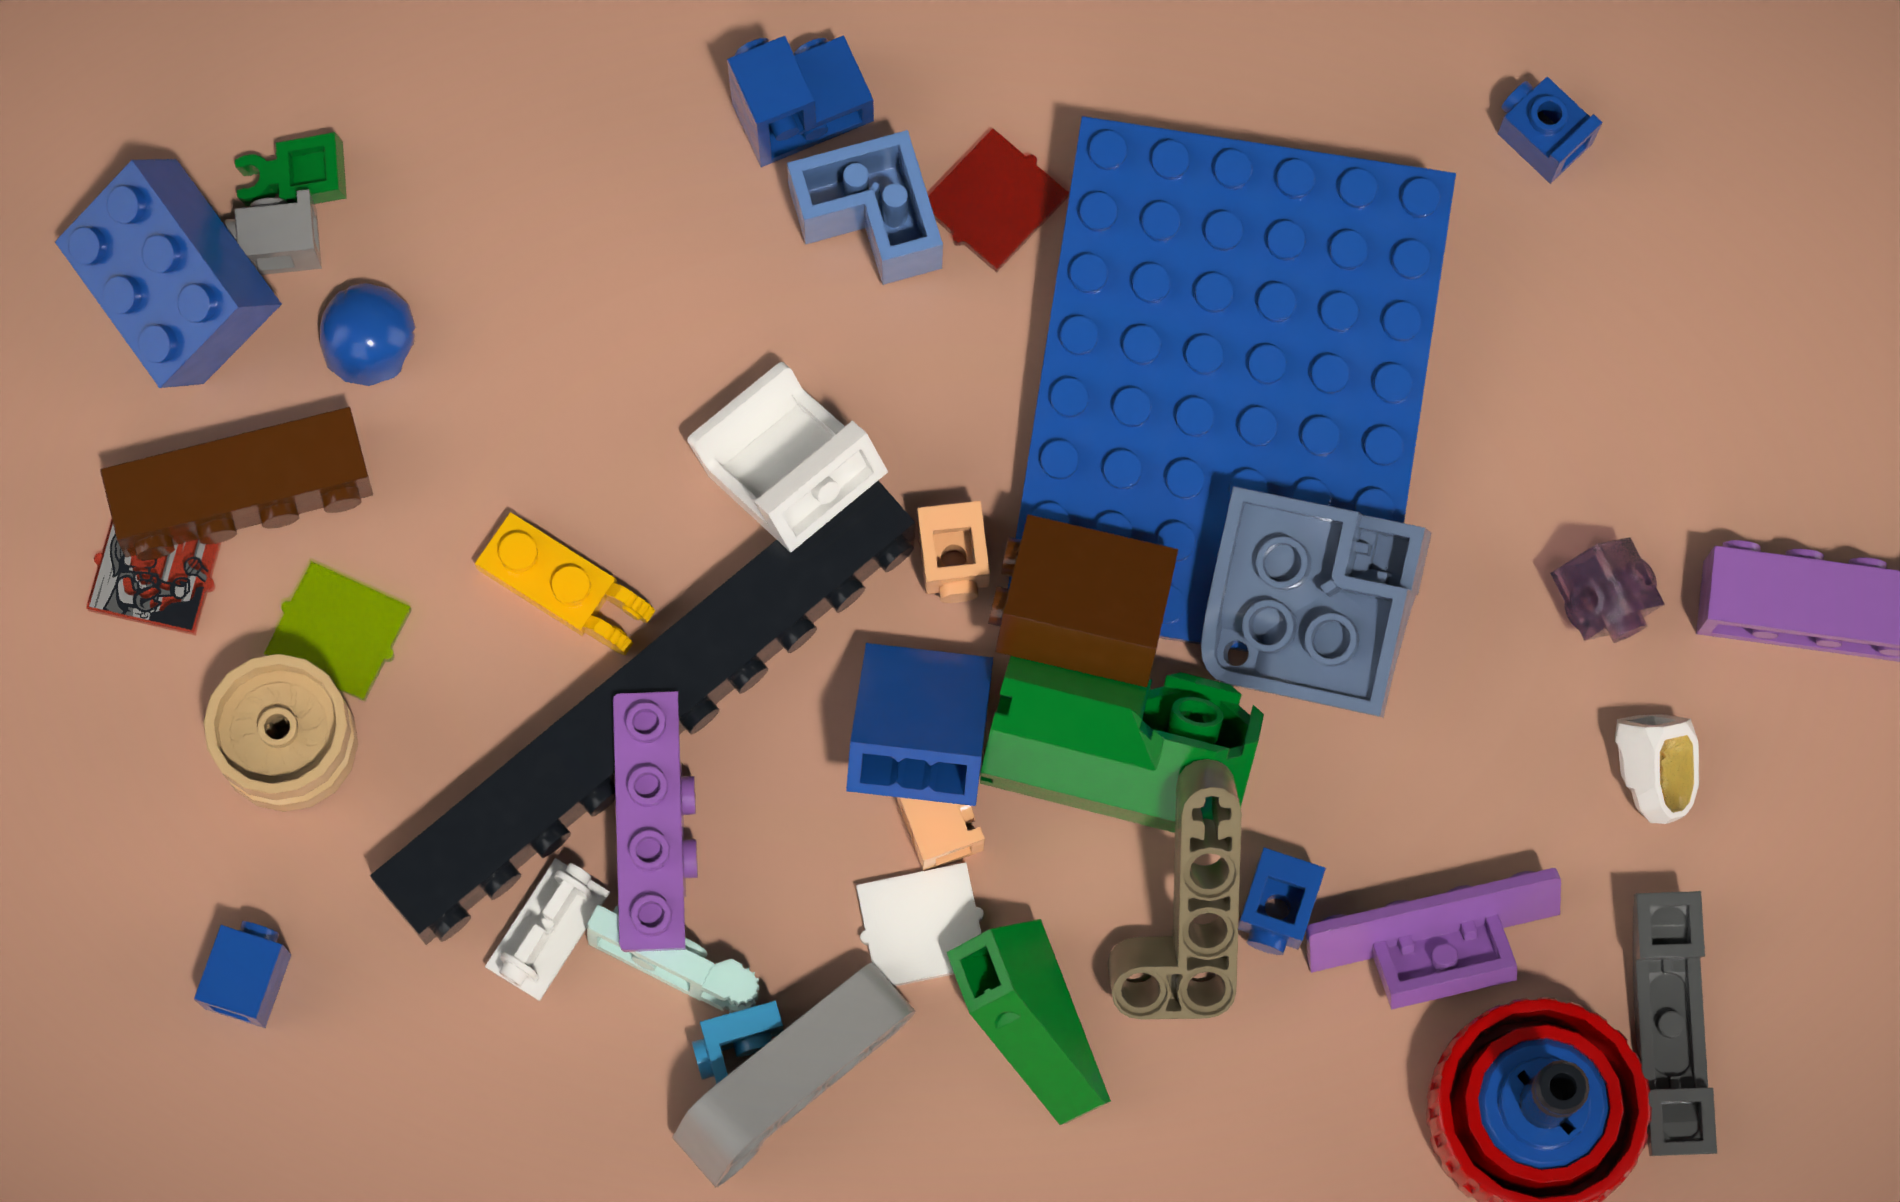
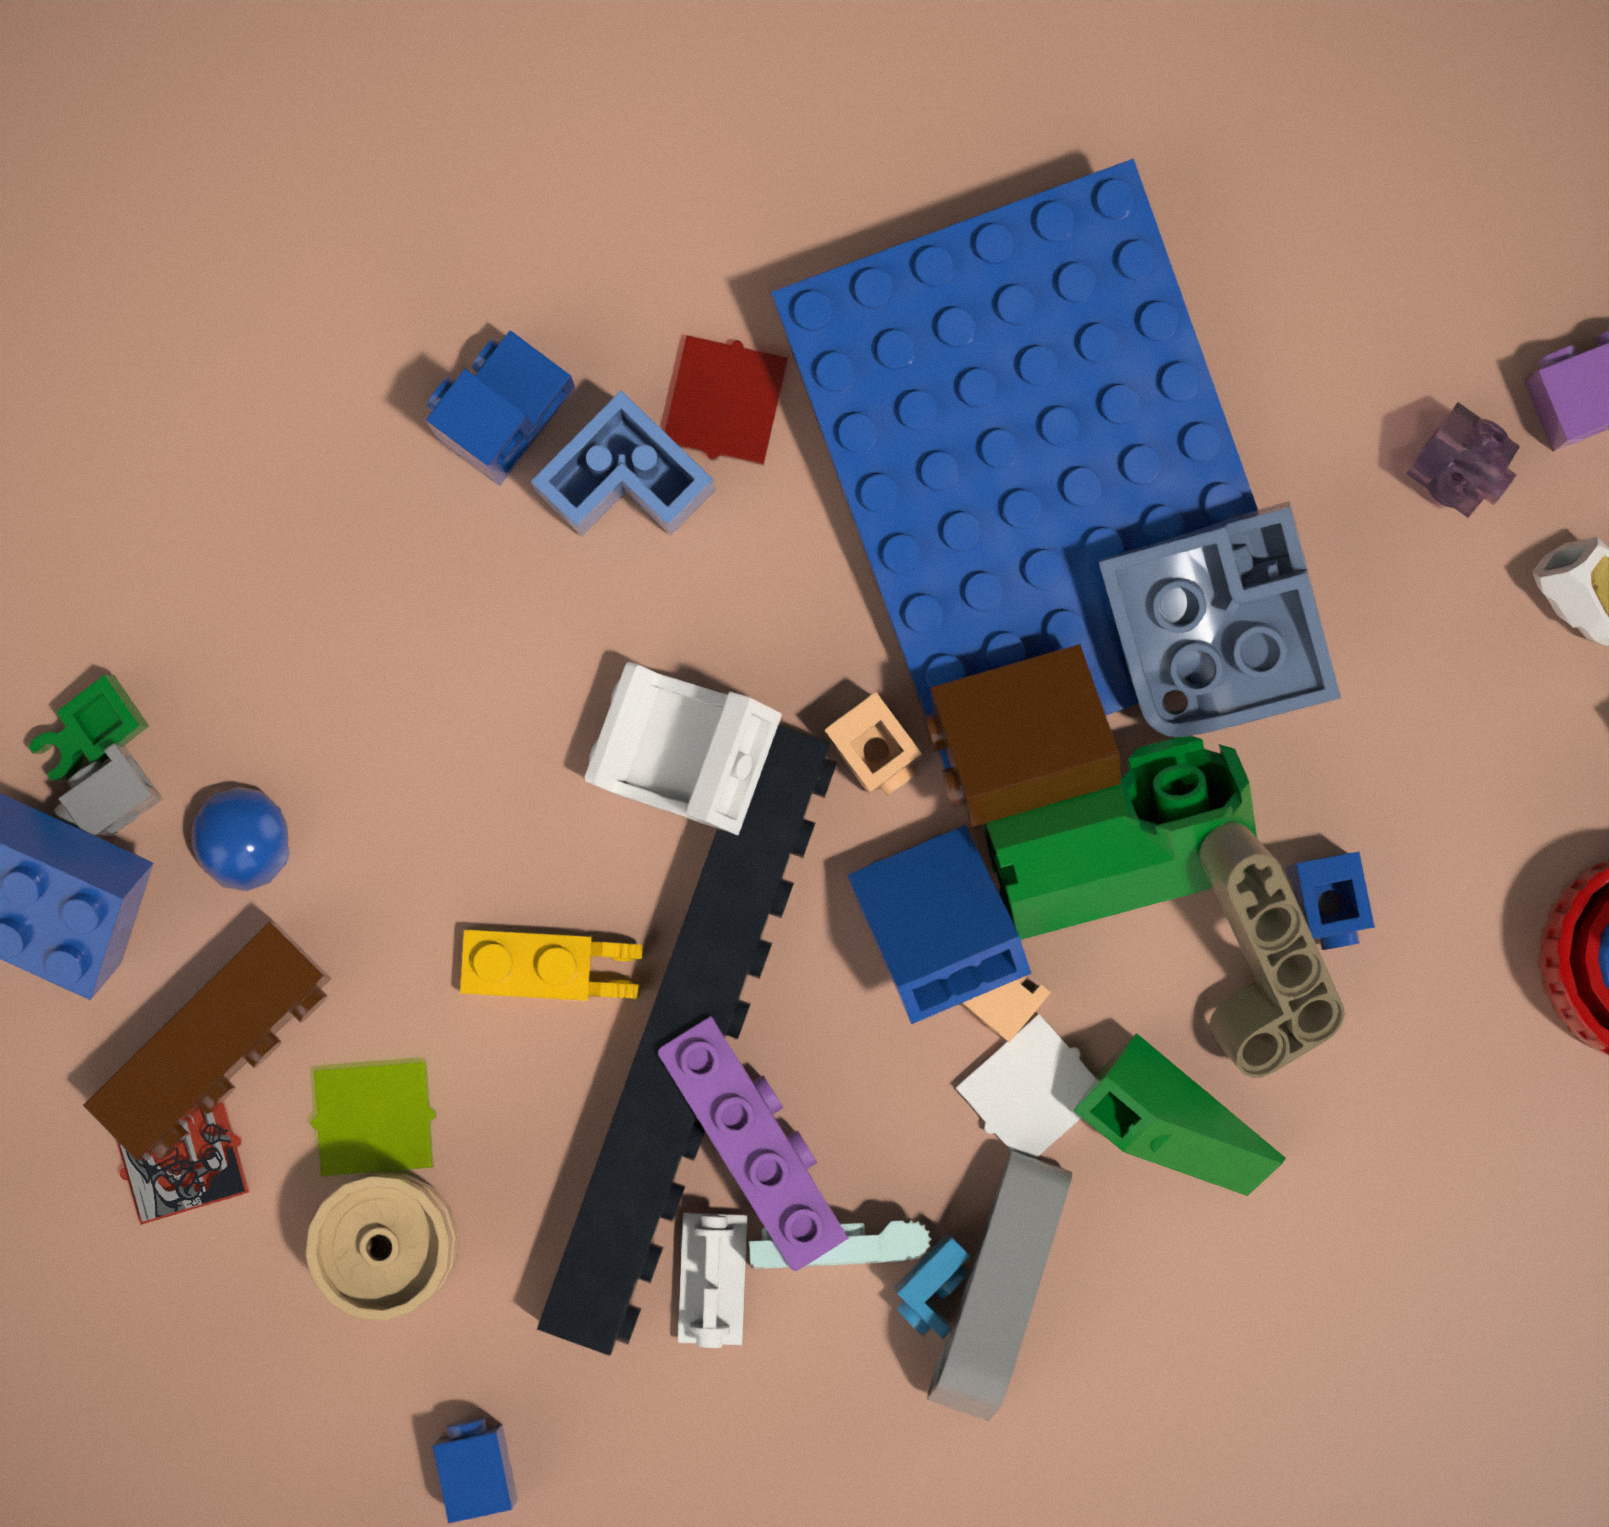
camera: 25 degrees left, 10 degrees up
(1438, 941) = (1489, 858): medium lavender bracket -> none
(1545, 146) = (1186, 81): blue brick -> none

